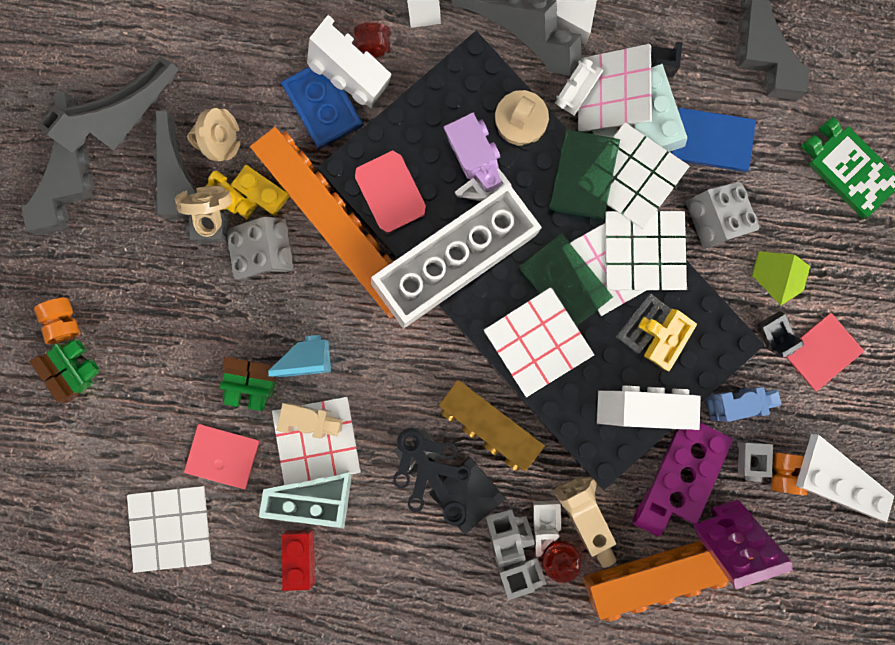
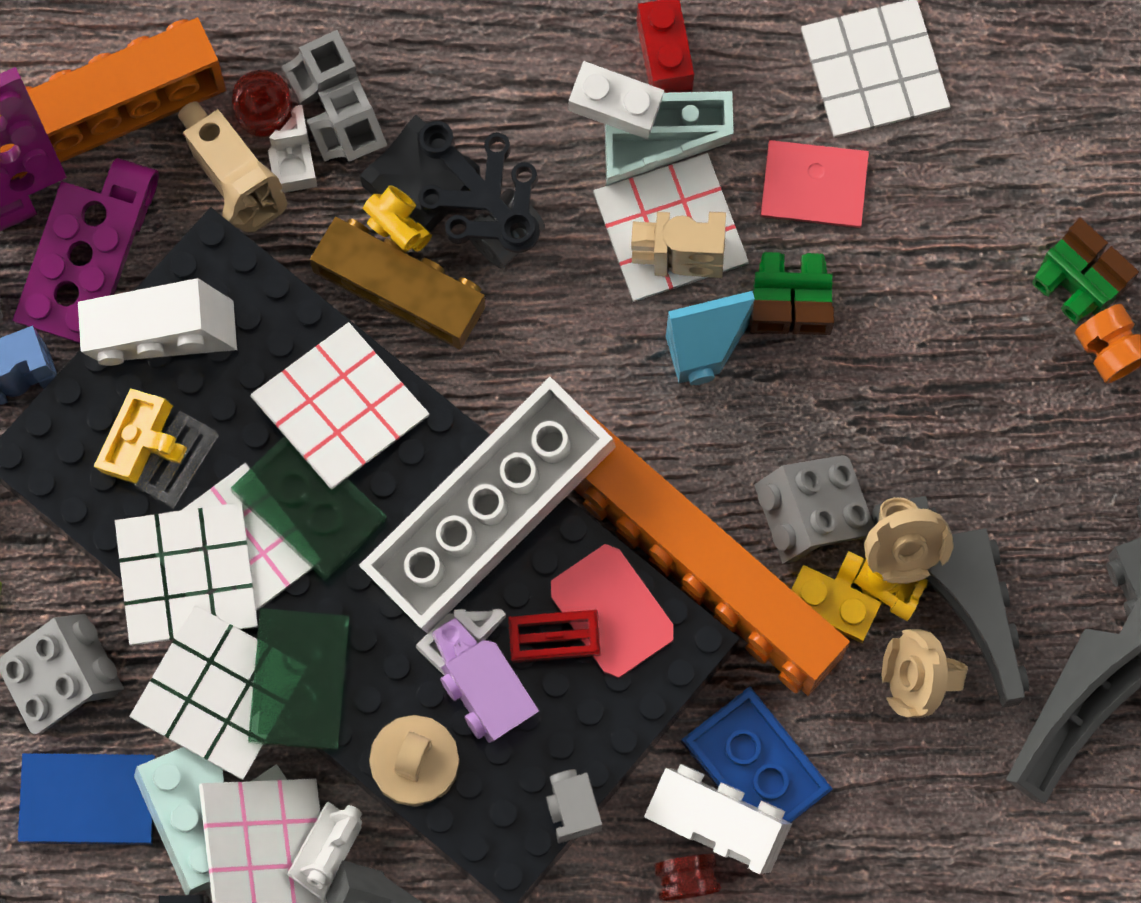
camera: 165 degrees right, 10 degrees down
(333, 518) = (615, 100): none -> white brick
(427, 179) = (554, 653): none -> red tile
(431, 73) = (573, 805): none -> light grey brick
(489, 465) = (391, 217): none -> yellow plate

